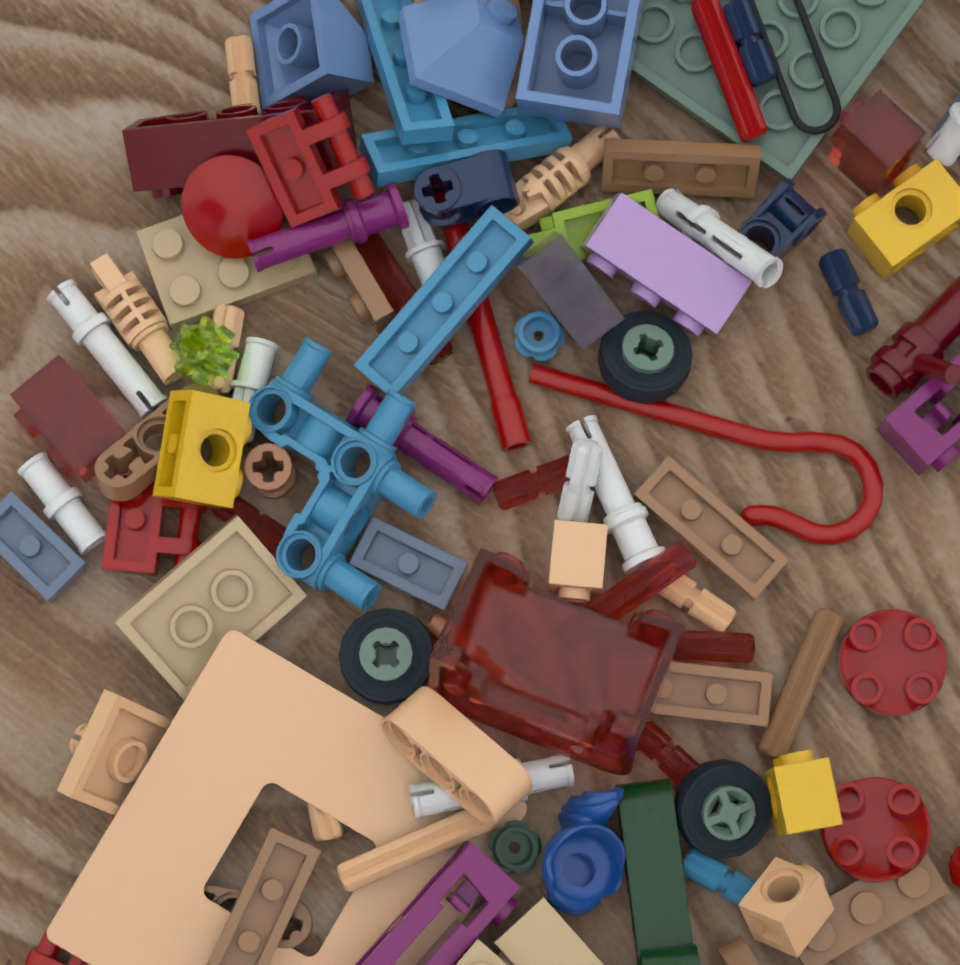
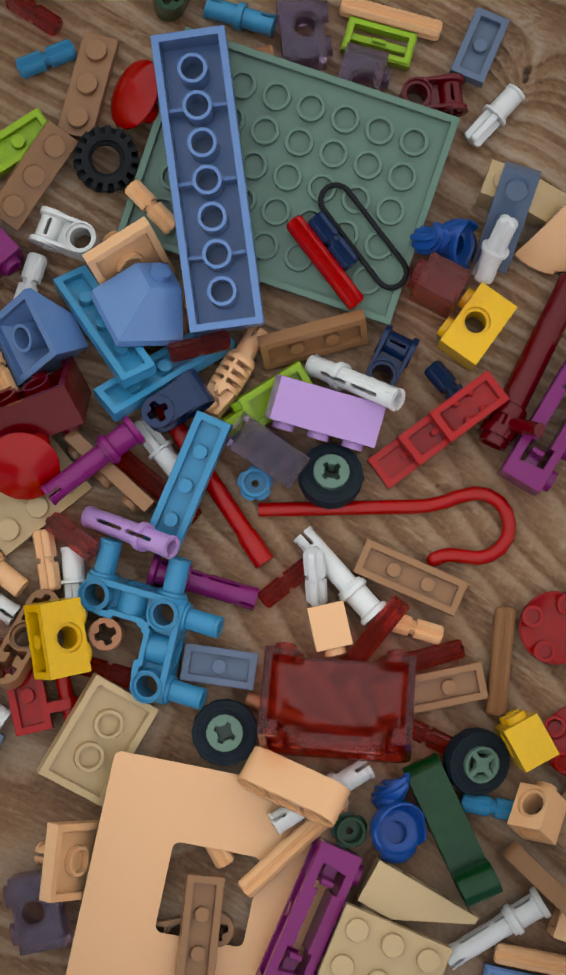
camera: 25 degrees left, 5 degrees up
(28, 843) = (30, 933): none -> clear purple brick
(204, 350) = (26, 566): clear neon green gear -> none
(265, 320) = (77, 539): none -> clear red piece
(296, 167) = (58, 429): red plate -> none
(381, 361) = (160, 542): none -> lavender pin
(511, 123) = (193, 347): none -> clear red piece
(813, 339) = (437, 429): none -> red slope
(914, 87) = (451, 240): none -> blue hair

